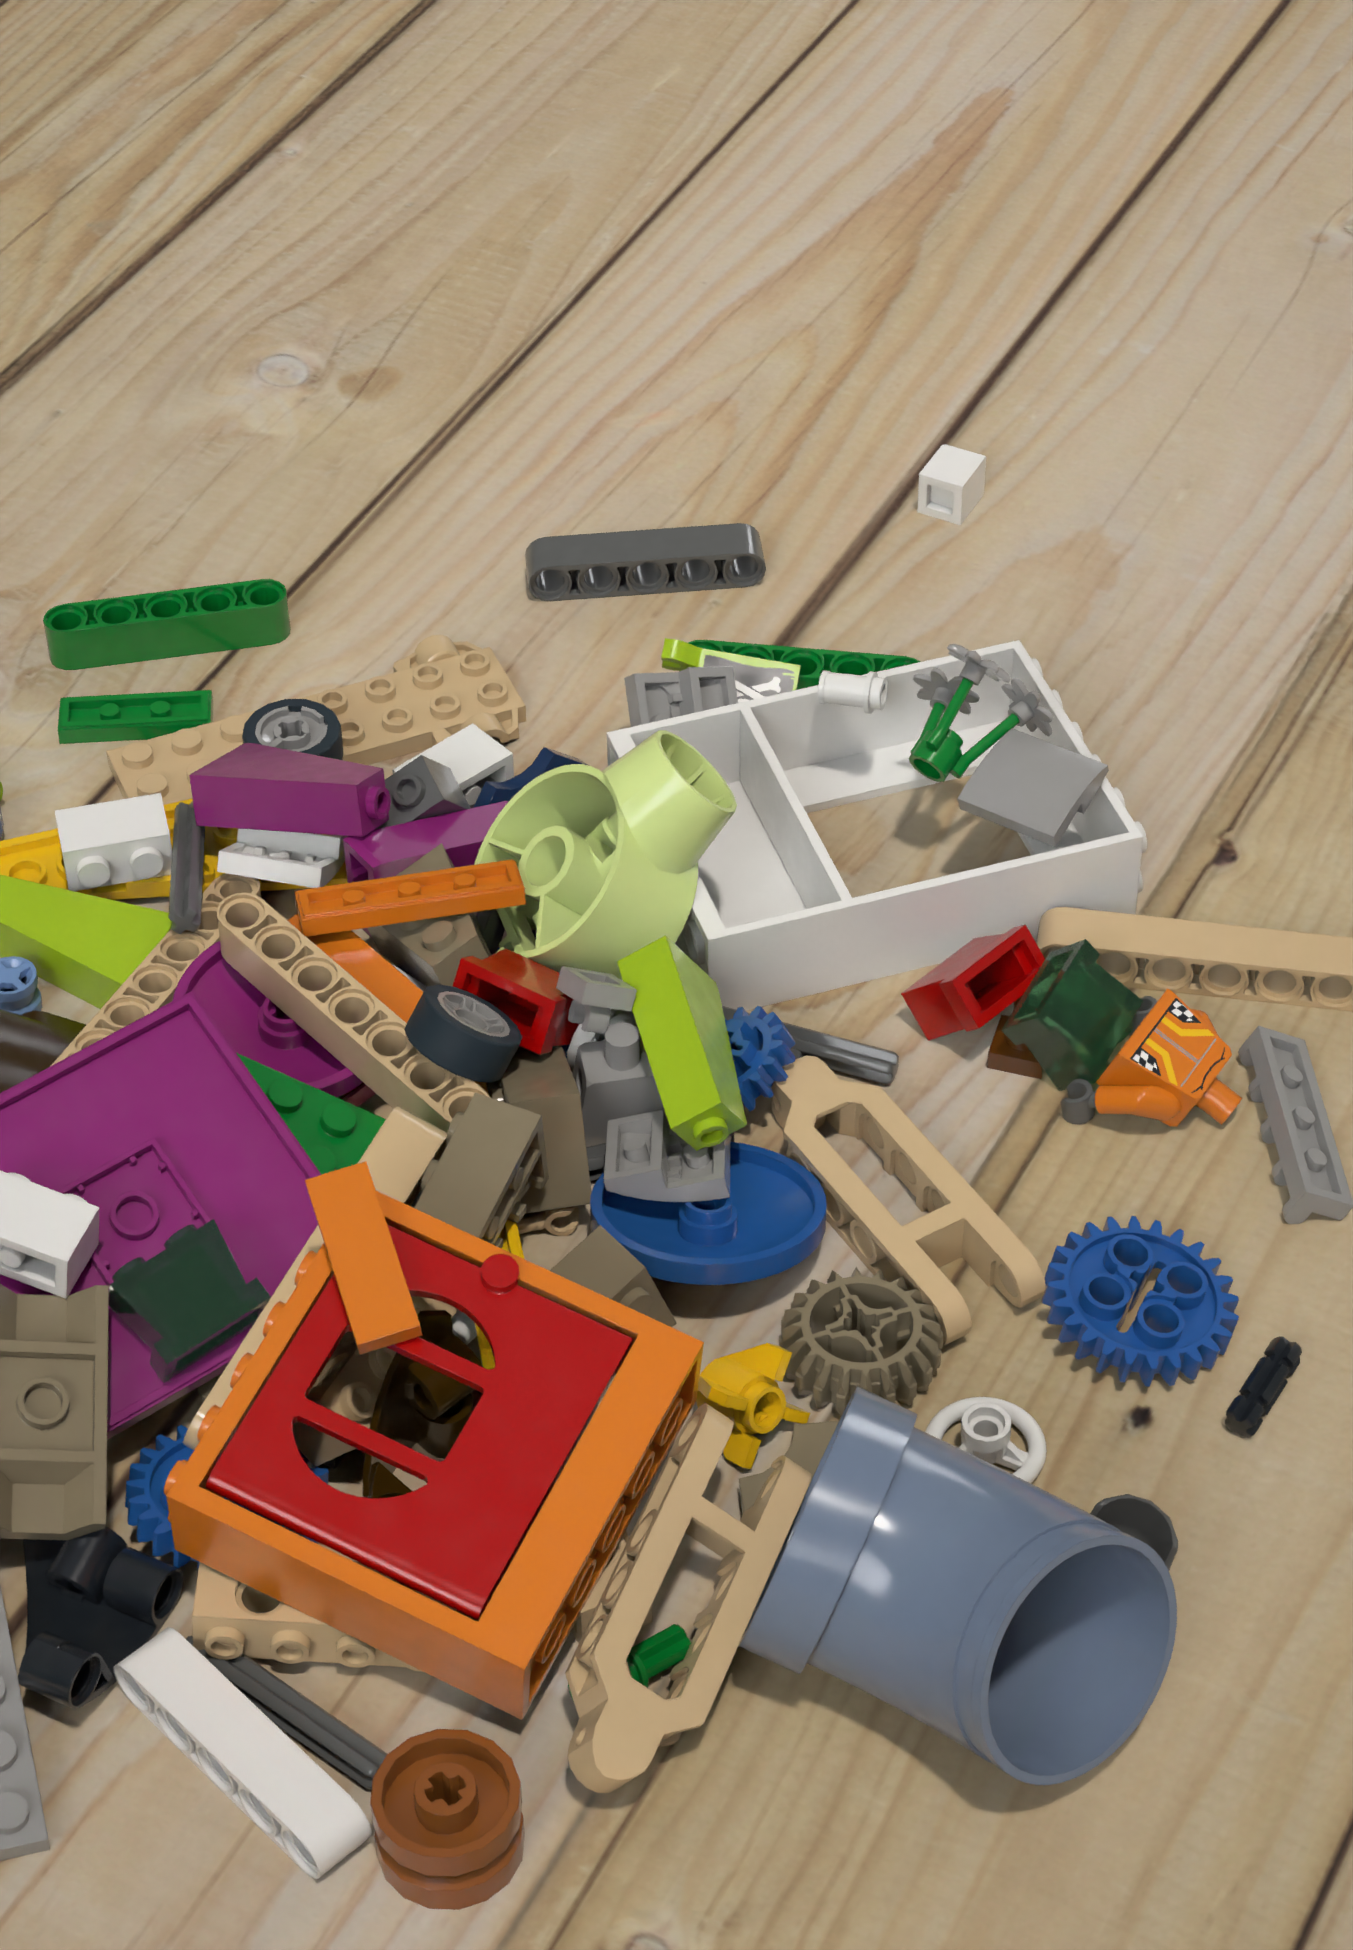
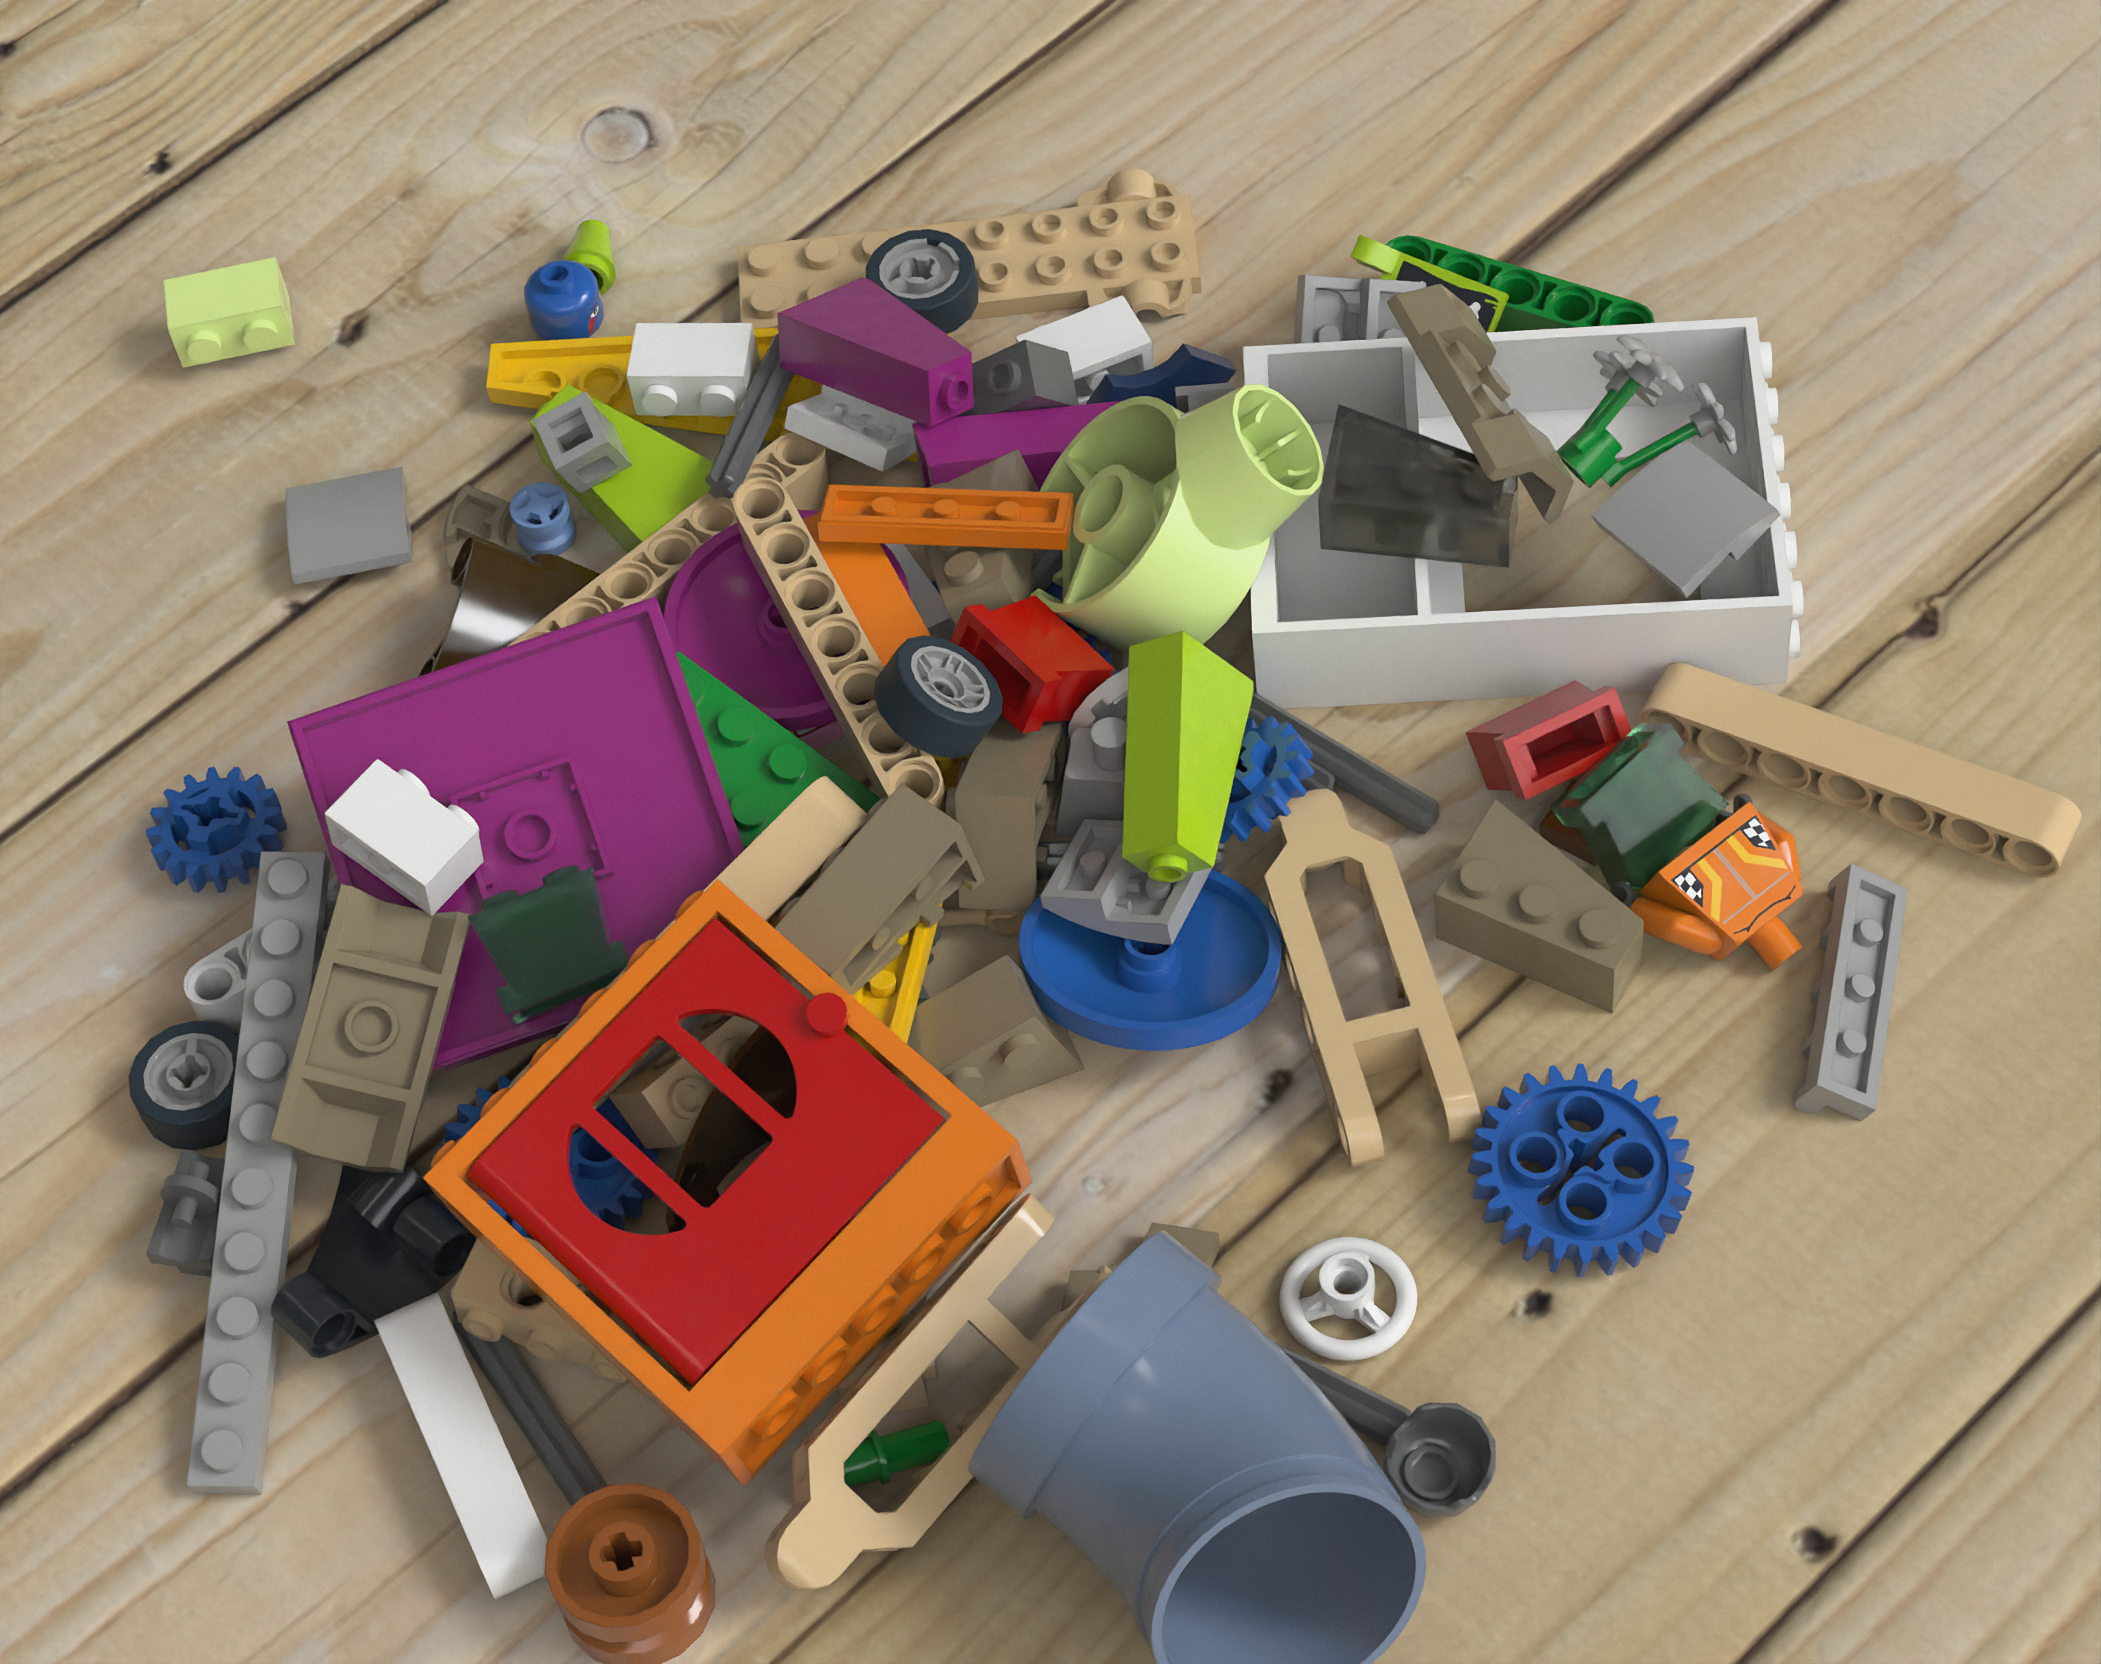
camera: 25 degrees right, 10 degrees up
(46, 907) = (582, 443): none -> light grey brick
(131, 715) = (784, 206): green tile -> none
(167, 624) = (854, 100): green beam -> none
(363, 1258) = (688, 966): orange tile -> none
(594, 996) = (1092, 680): light grey tile -> none
(644, 562) = (1402, 116): dark grey beam -> none
(746, 1392) = (1107, 1184): yellow brick -> none
(811, 807) = (1412, 497): none -> clear smoke wedge
(853, 690) = (1540, 355): white pin -> none
(863, 1337) = (1299, 1144): dark tan gear -> none
(873, 747) = (1459, 364): none -> dark tan piece
(951, 484) = (1794, 75): white panel -> none
(1022, 1116) = (1538, 913): none -> dark tan wedge
(1263, 1386) = (1680, 1304): black axle -> none

